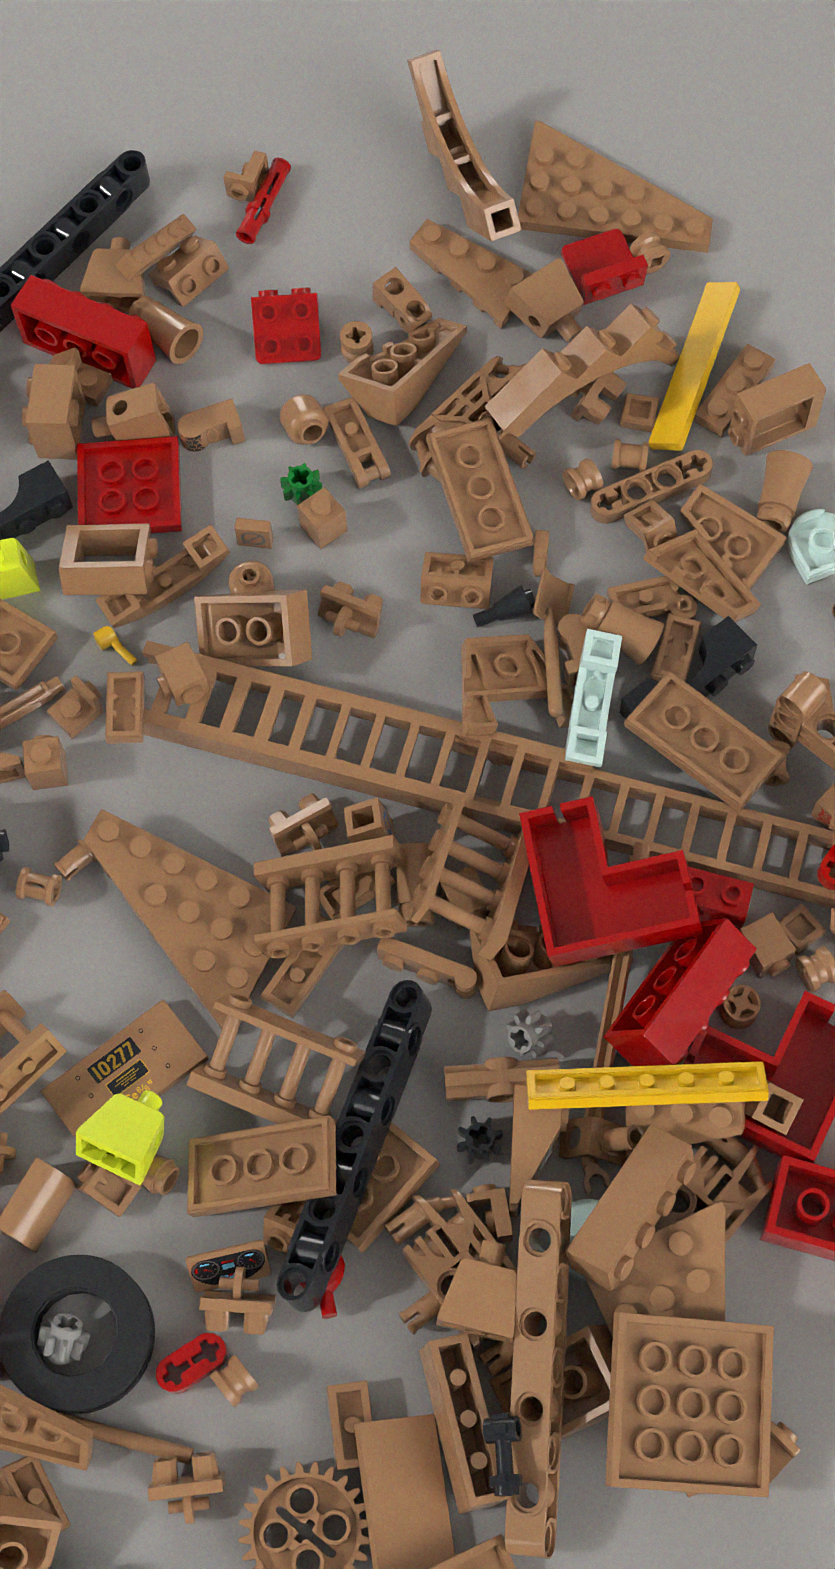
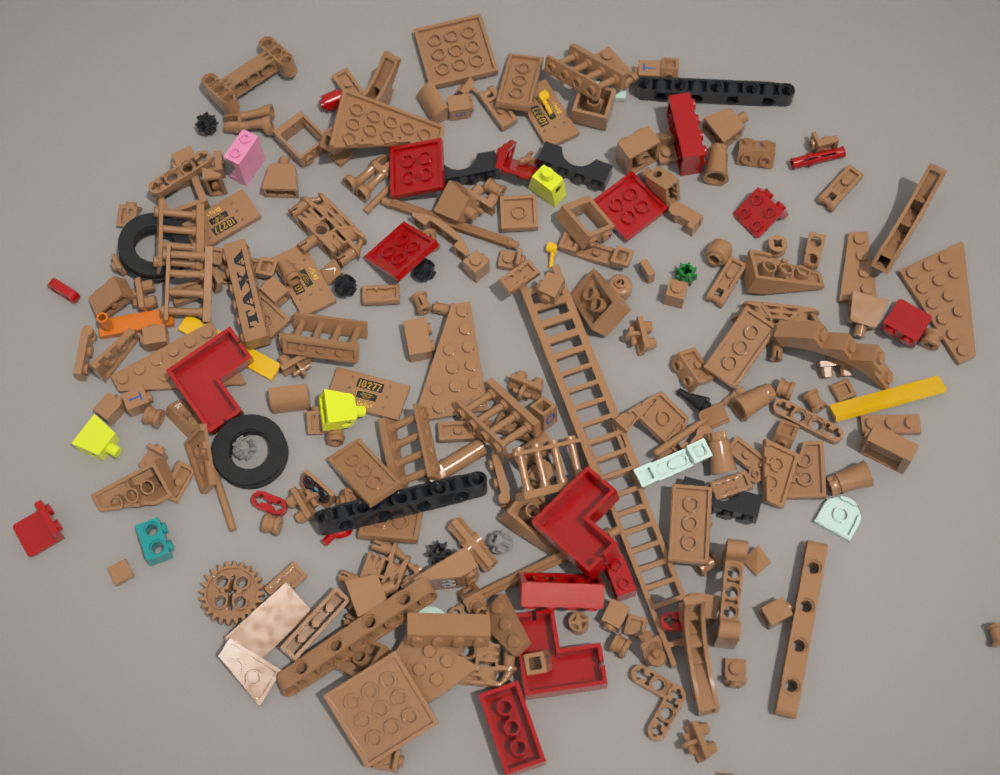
camera: 55 degrees right, 0 degrees up
(96, 932) = (418, 340): none -> medium nougat brick
(155, 247) = (751, 131): medium nougat piece -> none
(169, 1485) = (225, 539): medium nougat hips -> none
(333, 204) = (840, 187): none -> medium nougat plate
(348, 1002) = (461, 459): none -> medium nougat piece
(502, 1431) = (318, 639): black bar -> none
(570, 534) = (752, 401): none -> medium nougat plant
(646, 1085) = (503, 600): yellow tile -> none

